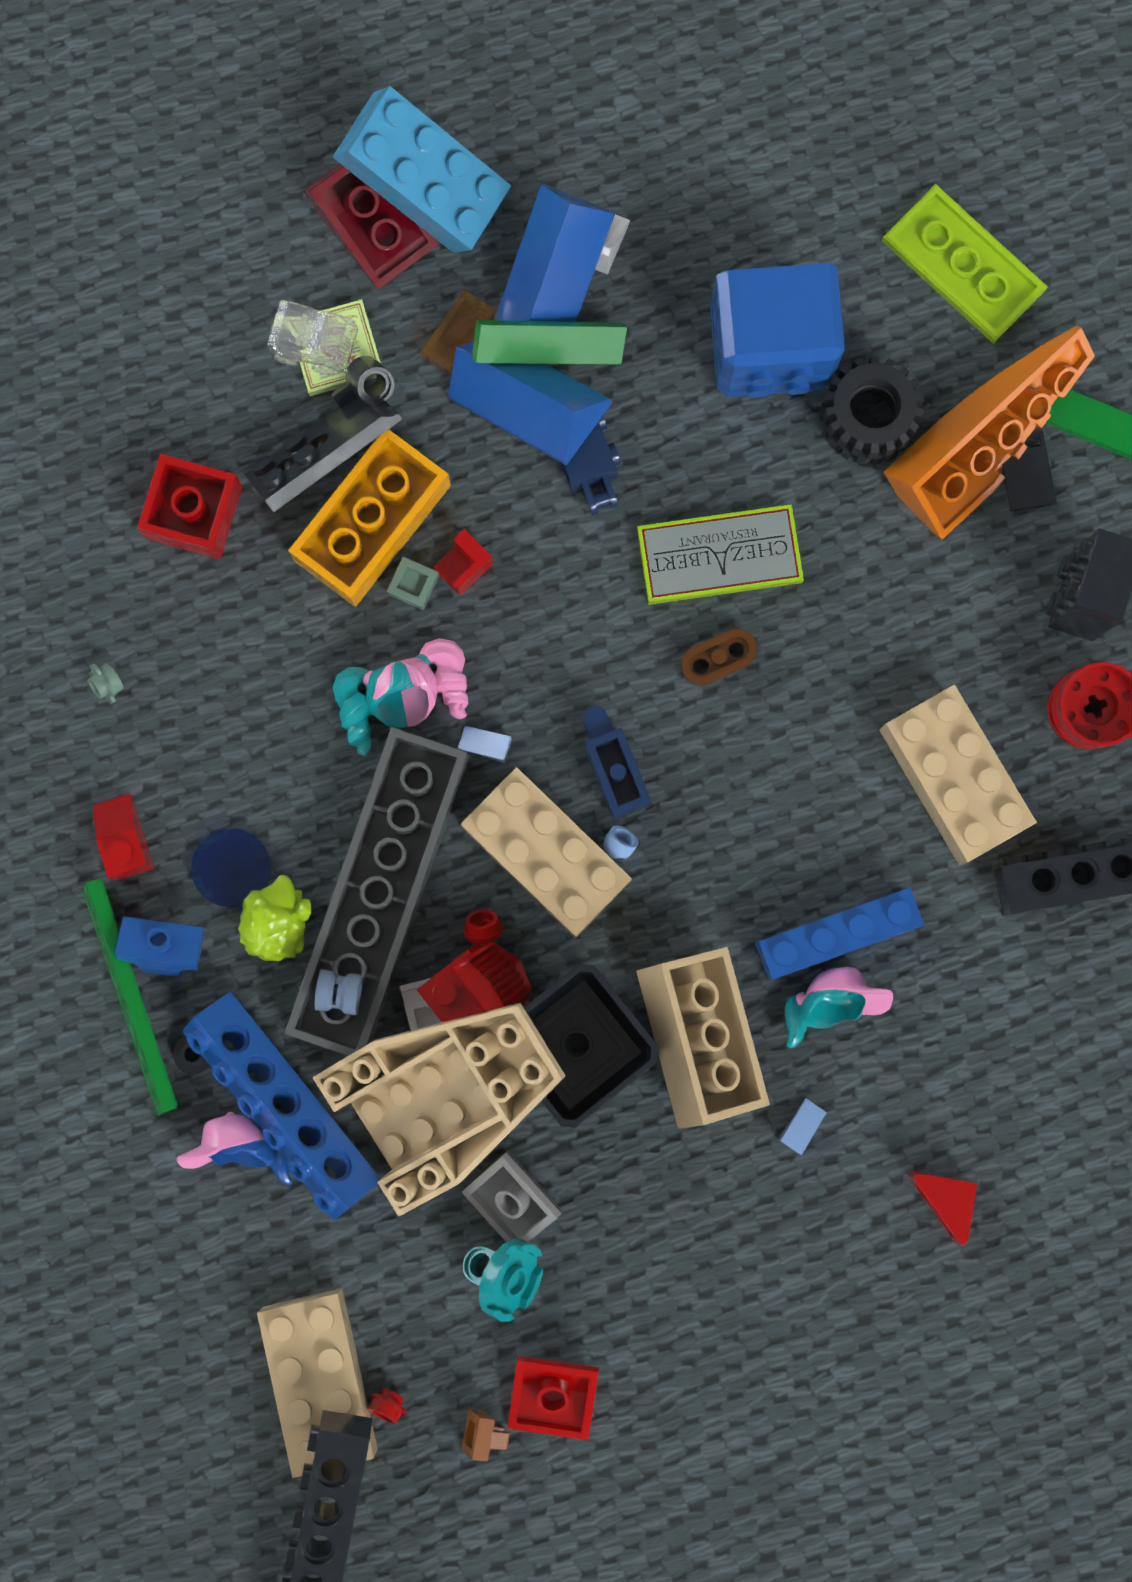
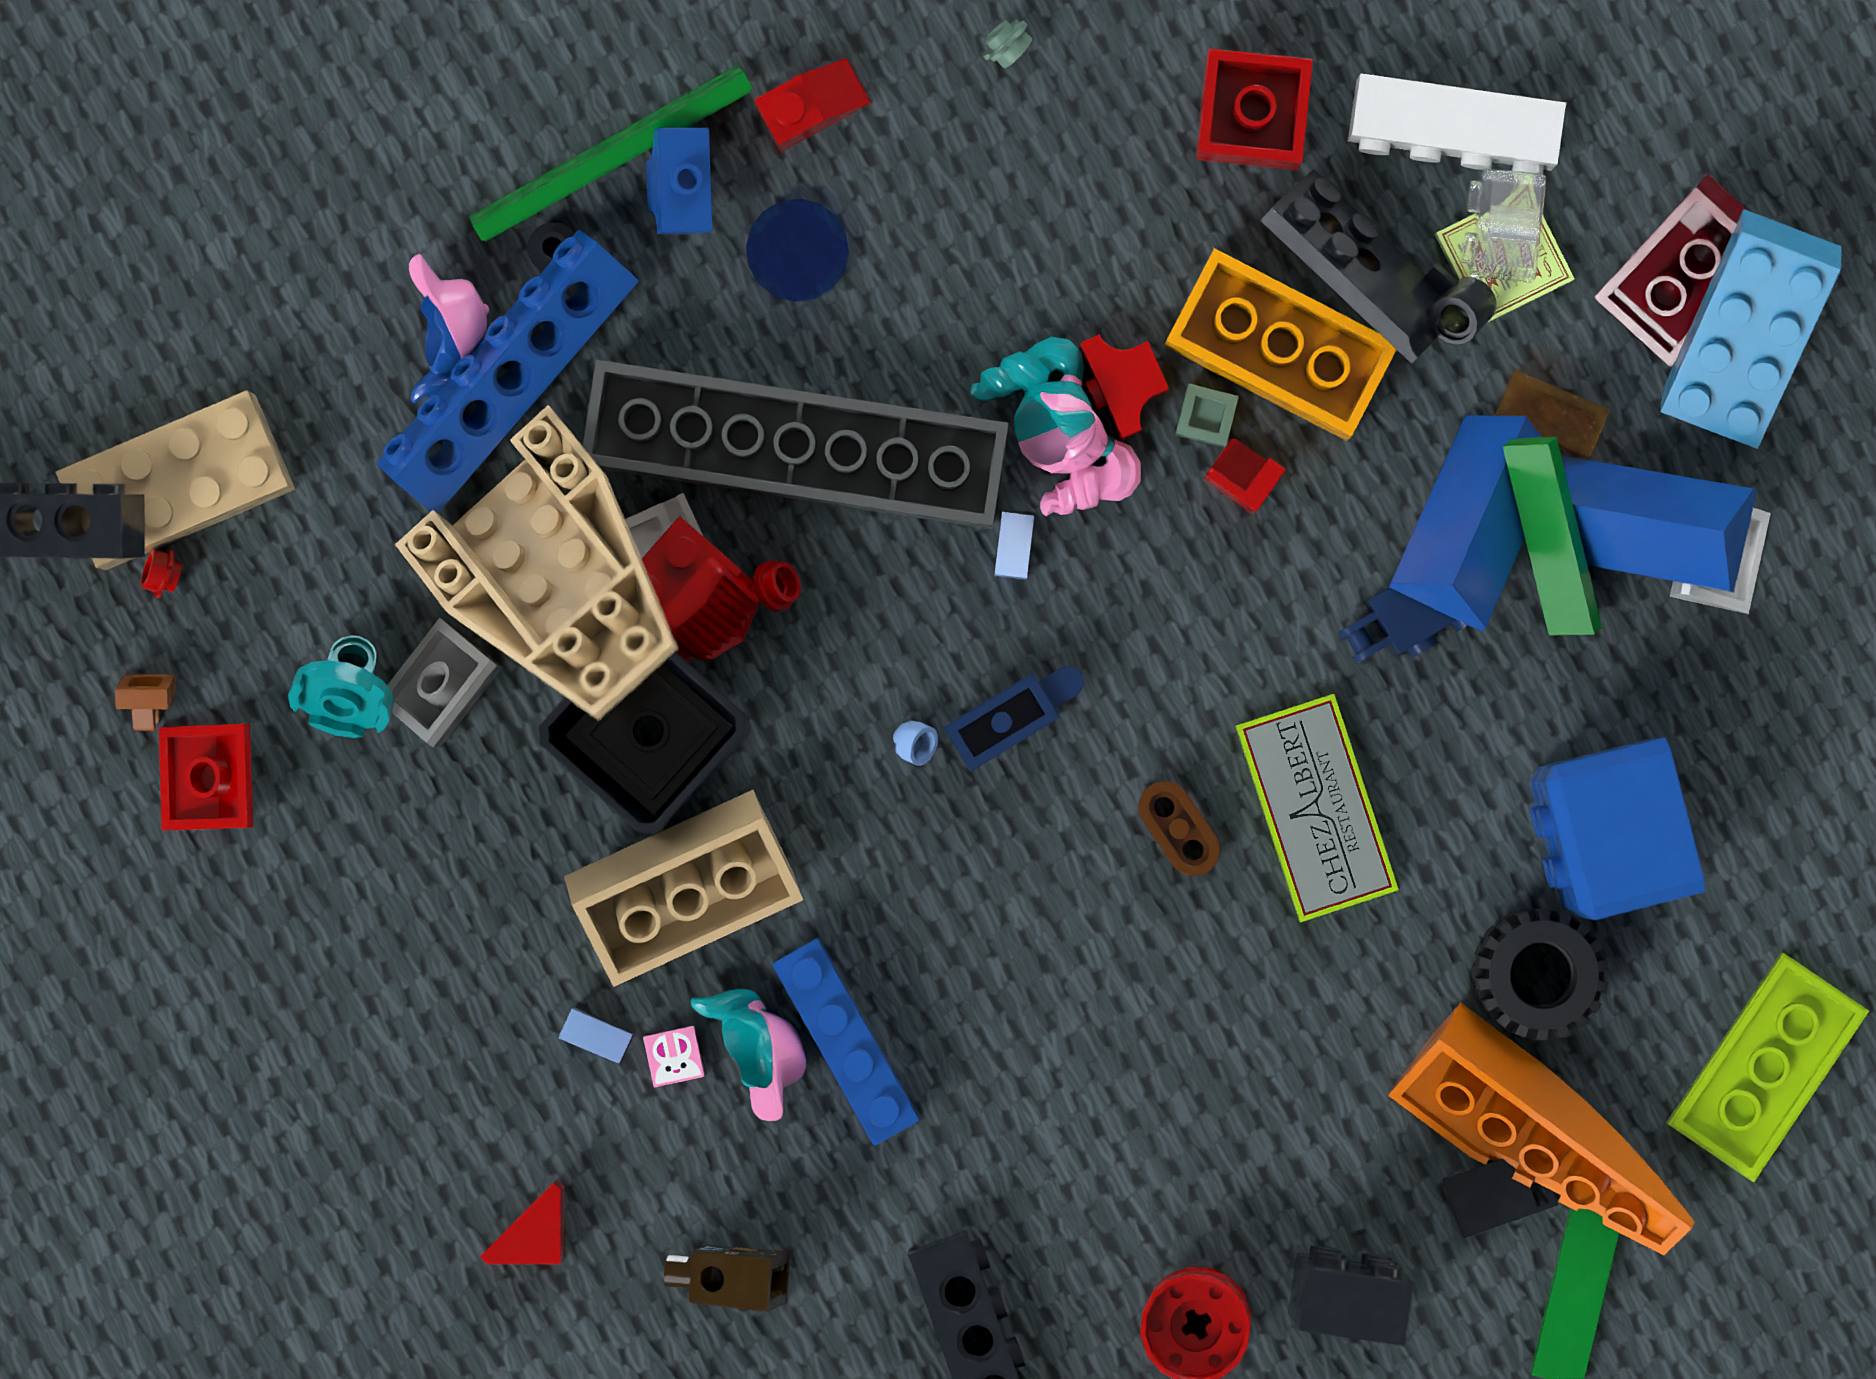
camera: 80 degrees right, 5 degrees up
(229, 364) = (1456, 123): none -> white brick
(274, 921) = (737, 319): lime animal -> none
(347, 995) = (658, 430): sand blue wheel -> none
(376, 640) = (1122, 381): none -> red brick
(546, 852) = (884, 648): tan brick -> none
(828, 1068) = (674, 1056): none -> tile
(957, 775) = (1076, 1161): tan brick -> none
(1005, 1036) = (751, 1277): none -> dark brown torso

